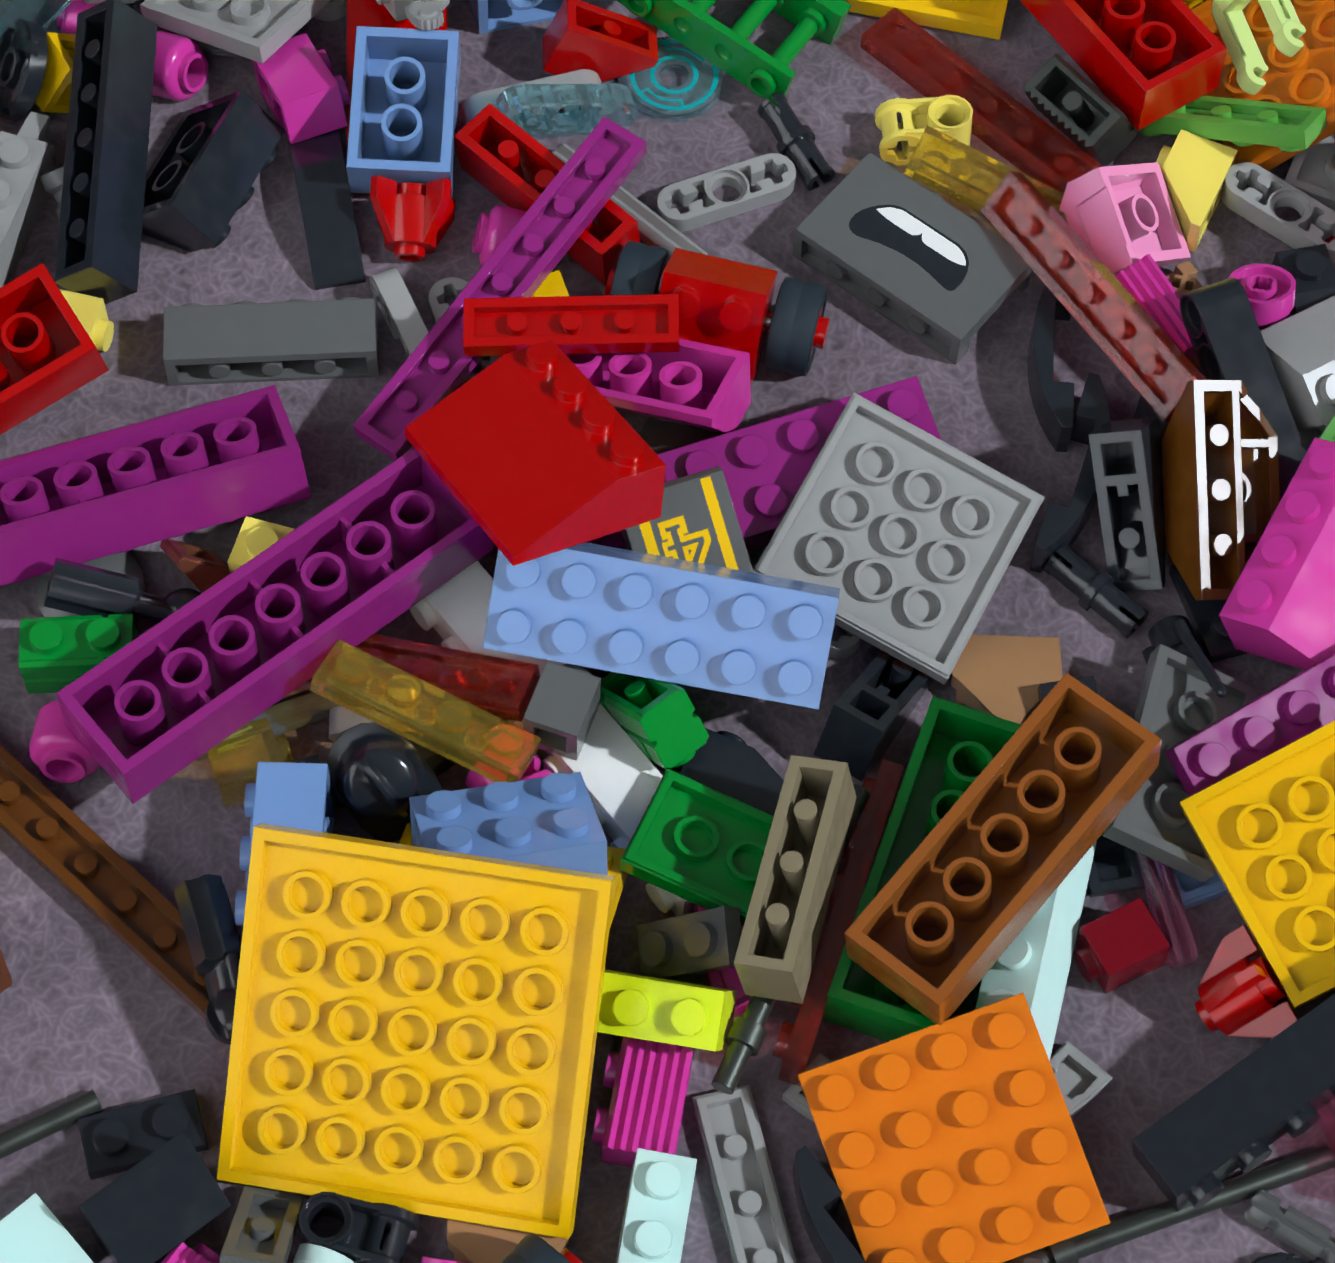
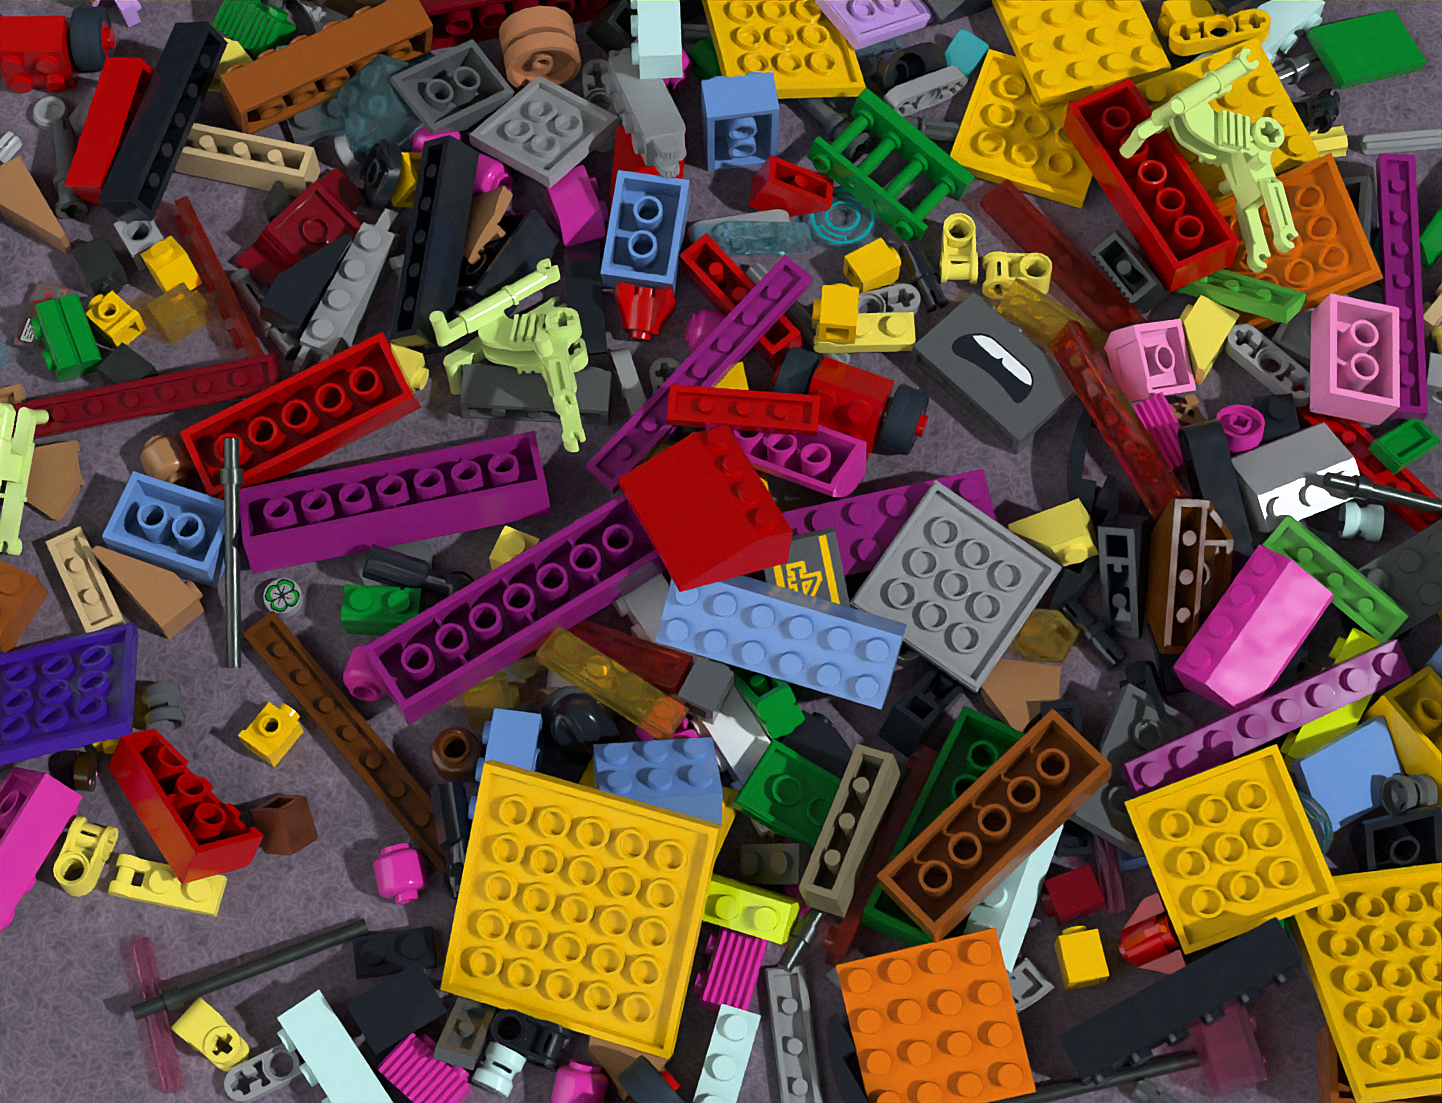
camera: 10 degrees right, 5 degrees up
(142, 1017) = (401, 873): none -> dark pink head
(172, 117) = (483, 221): none -> medium nougat slope
(196, 563) = (469, 556): copper slope -> none
(206, 840) = (453, 743): none -> reddish brown head
(260, 266) = (524, 342): none -> yellowish green piece
(685, 191) = (837, 313): none -> yellow brick
(723, 134) = (872, 266): none -> yellow brick
(723, 218) = (874, 334): none -> light yellow plate
(840, 110) = (958, 255): none -> light yellow piece
(1033, 596) = (1046, 636): none -> clear yellow brick
(1036, 453) = (1060, 533): none -> light yellow slope
(1145, 1032) = (1081, 958): none -> yellow brick

